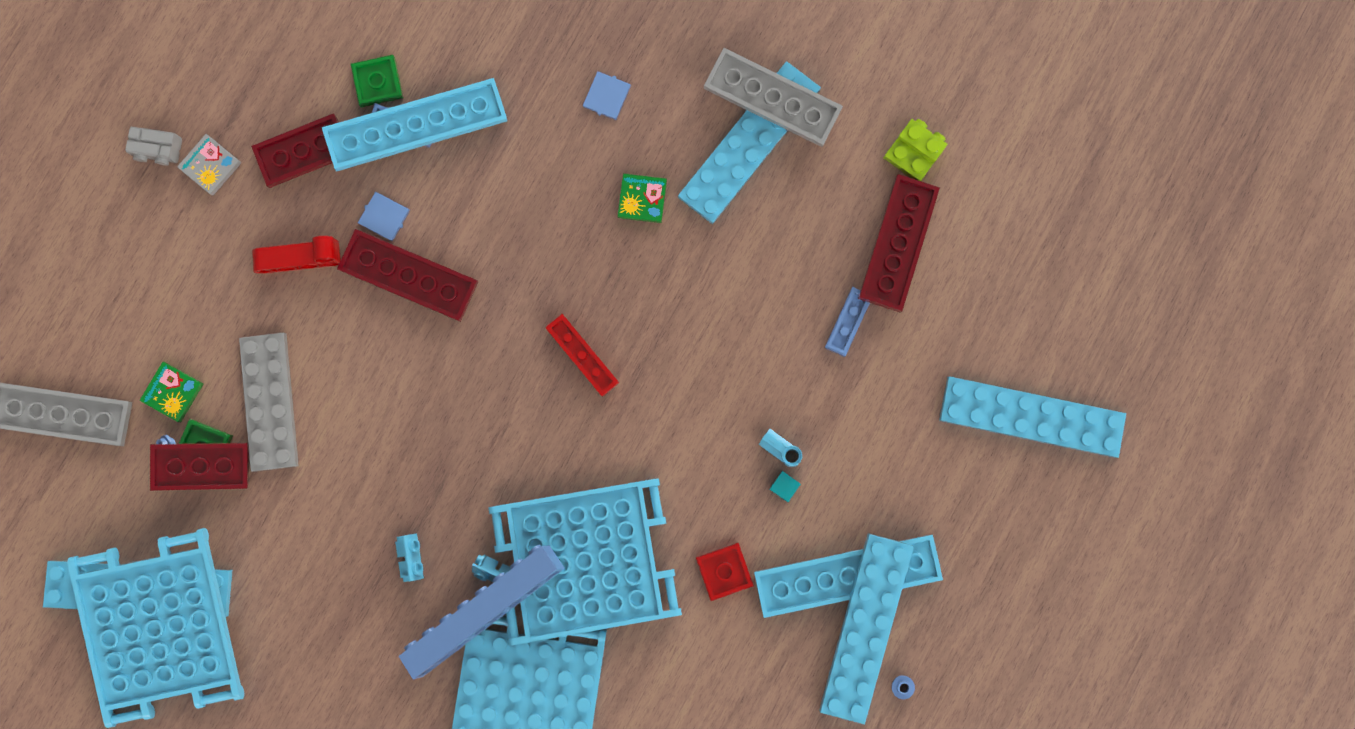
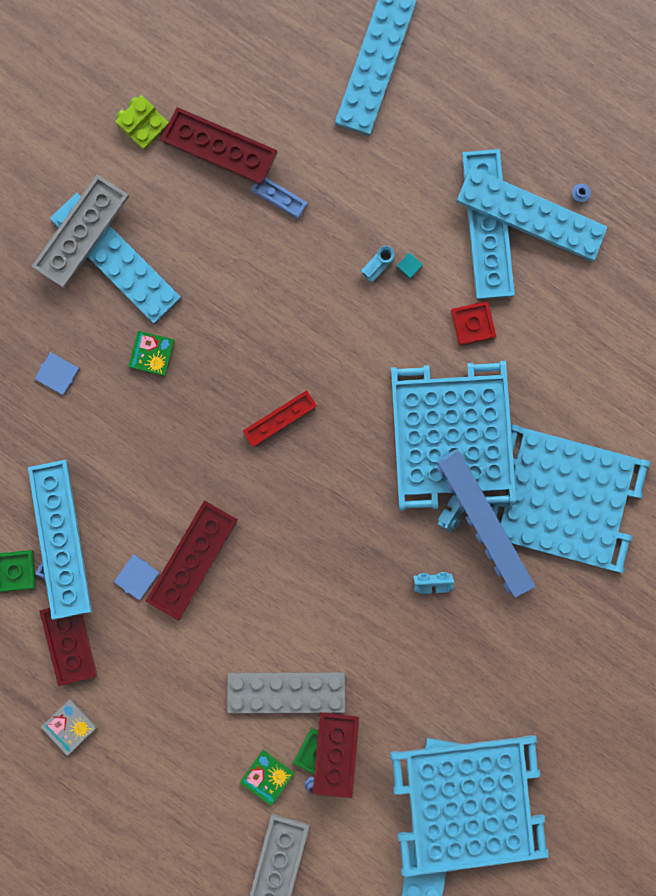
camera: 85 degrees left, 0 degrees up
(153, 145) = (45, 774): light grey brick -> none
(321, 252) = (162, 655): red beam -> none

